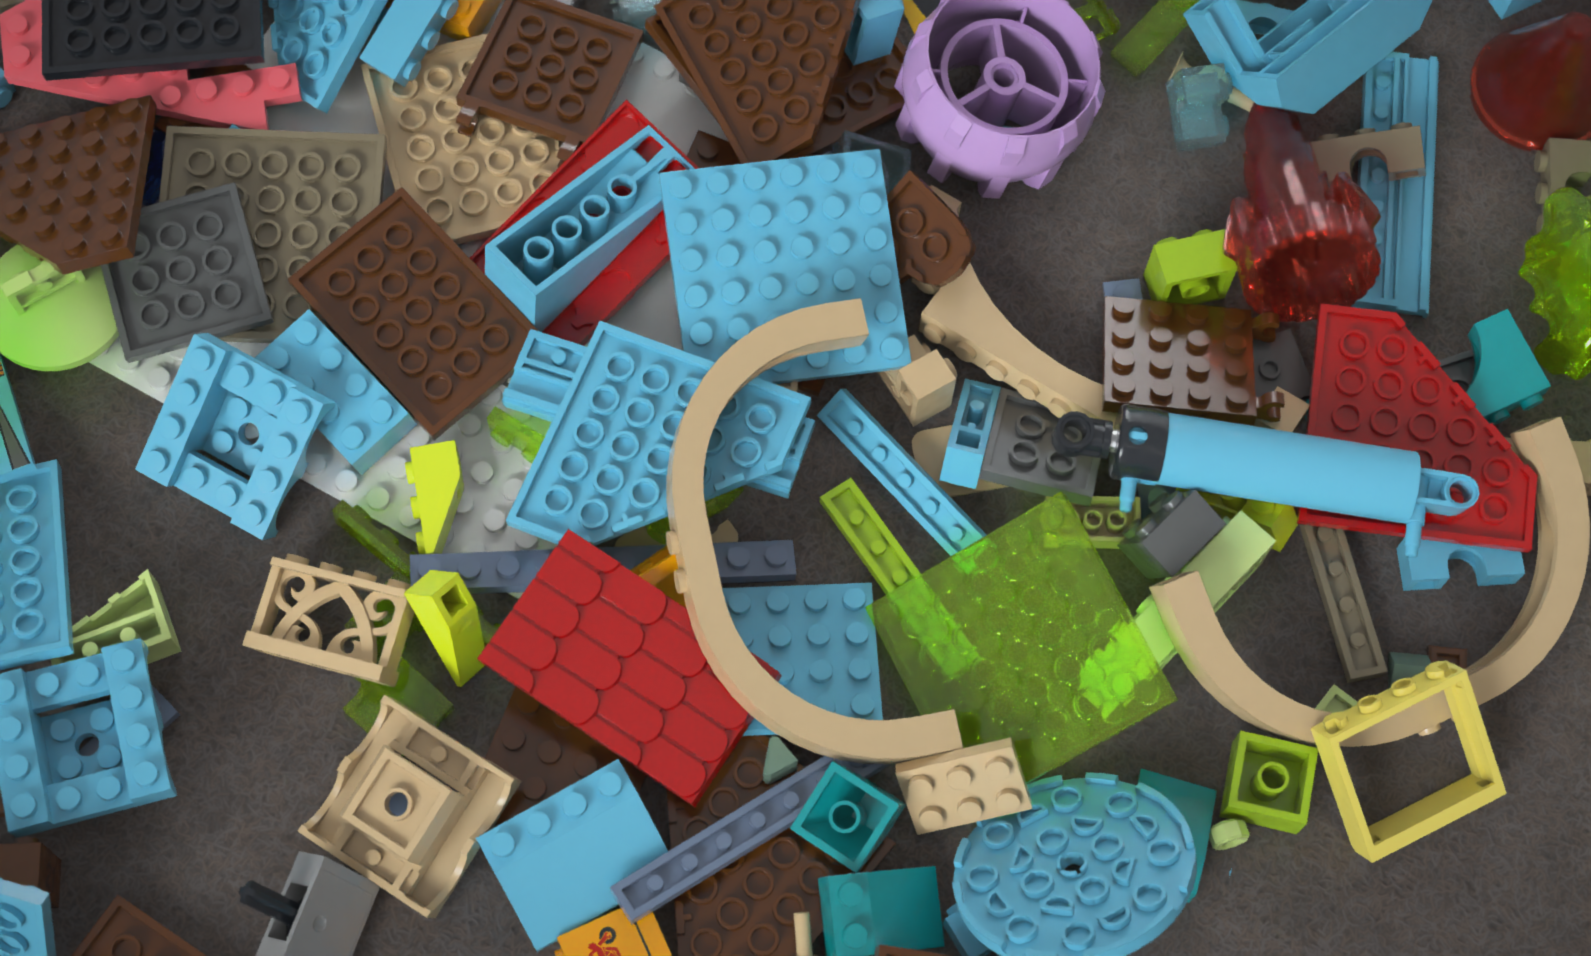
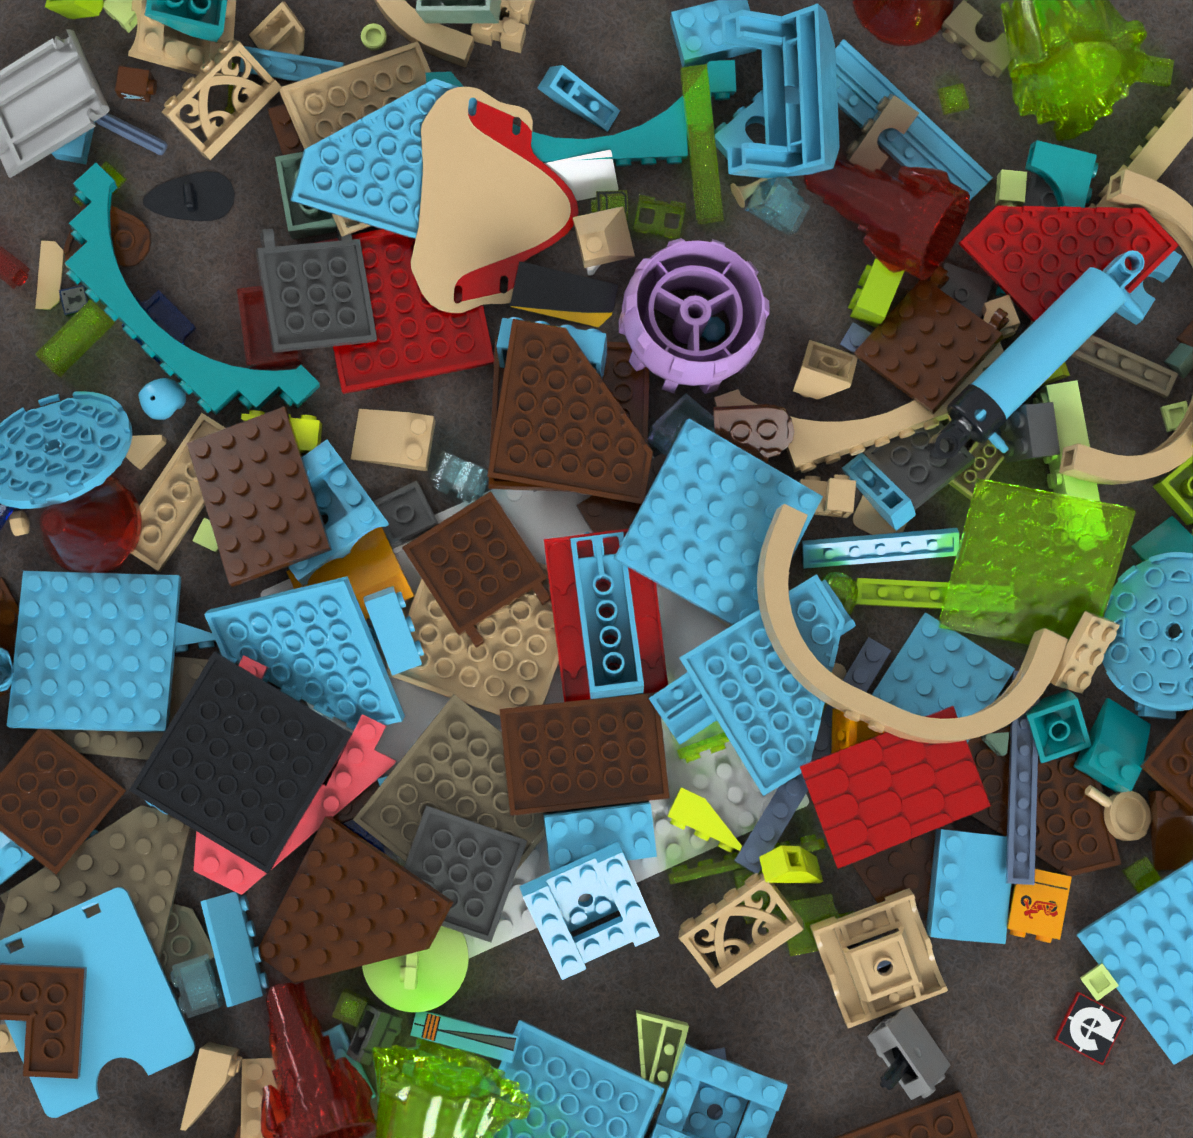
camera: 55 degrees left, 15 degrees up
(827, 465) = (844, 588): none -> clear neon green helmet
(1056, 278) = (824, 371): none -> tan slope
(1439, 333) = (1010, 188): none -> yellowish green brick
(1477, 215) = (953, 99): none -> clear neon green plate

